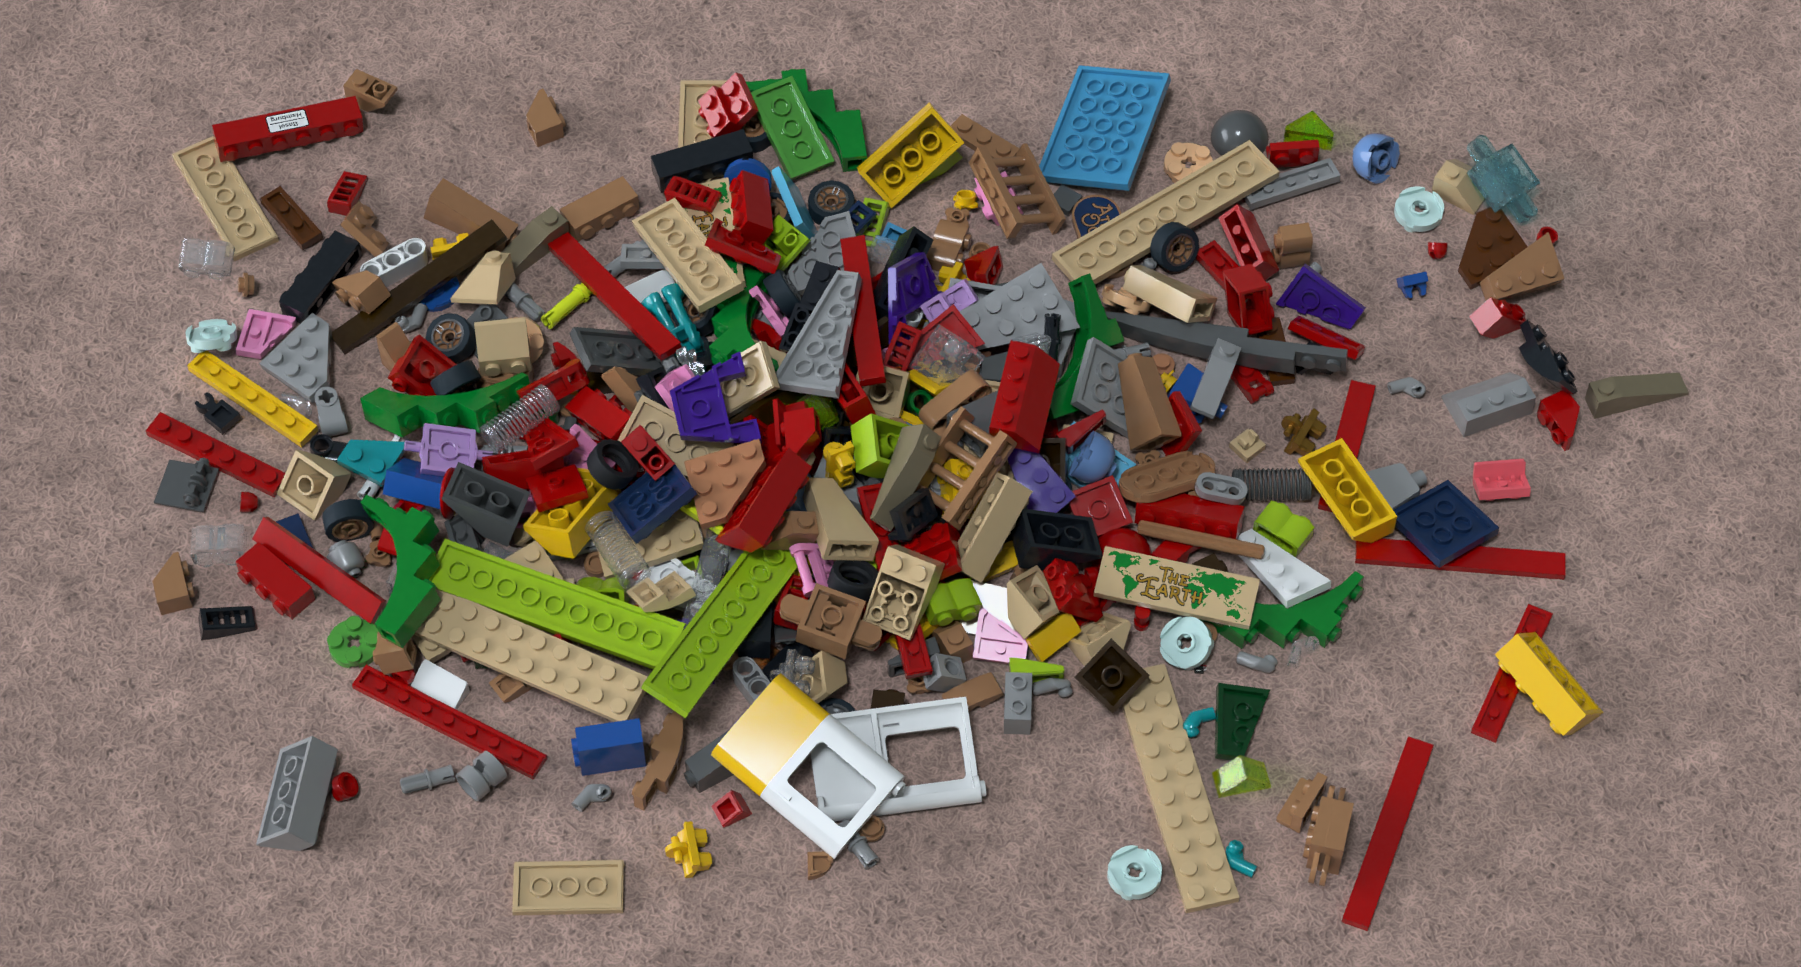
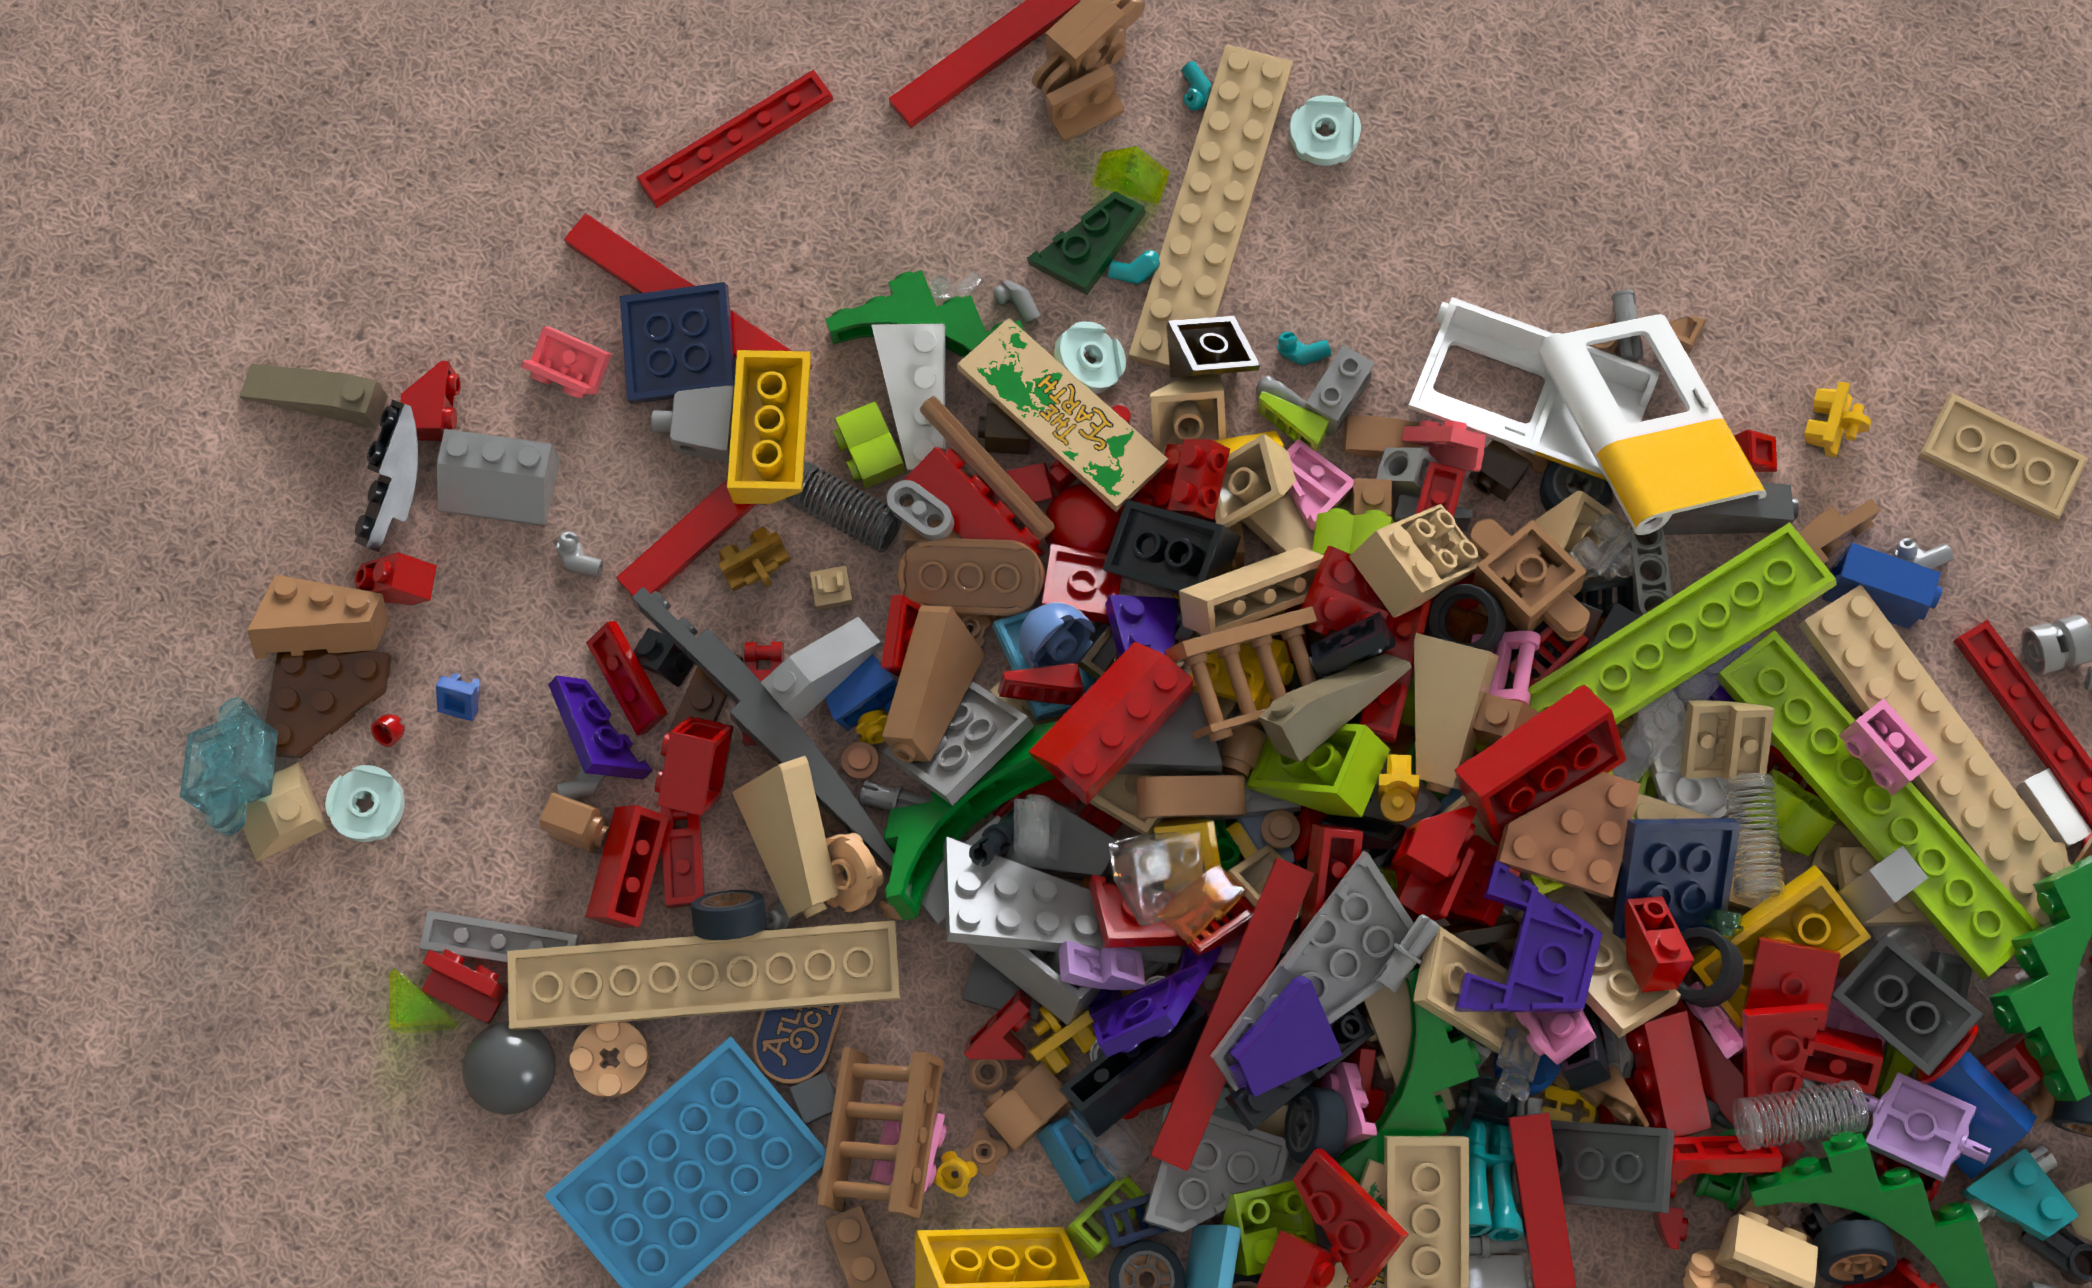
camera: 145 degrees left, 15 degrees up
(527, 554) = (1882, 885): none -> light grey slope
(563, 619) = (1887, 747): none -> bright pink brick
(612, 496) = (1724, 922): none -> clear green plate
(783, 364) = (1408, 953): none -> light grey axle
(823, 293) = (1284, 1041): none -> dark purple slope
(913, 346) = (1201, 902): none -> clear orange slope
(927, 688) = (1449, 443): none -> coral bracket
(1057, 722) = (1299, 353): none -> teal arm
(1375, 152) = (363, 912): medium blue cylinder -> none
(1547, 683) = (710, 88): yellow slope -> none
(1553, 234) = (240, 665): red hinge -> none

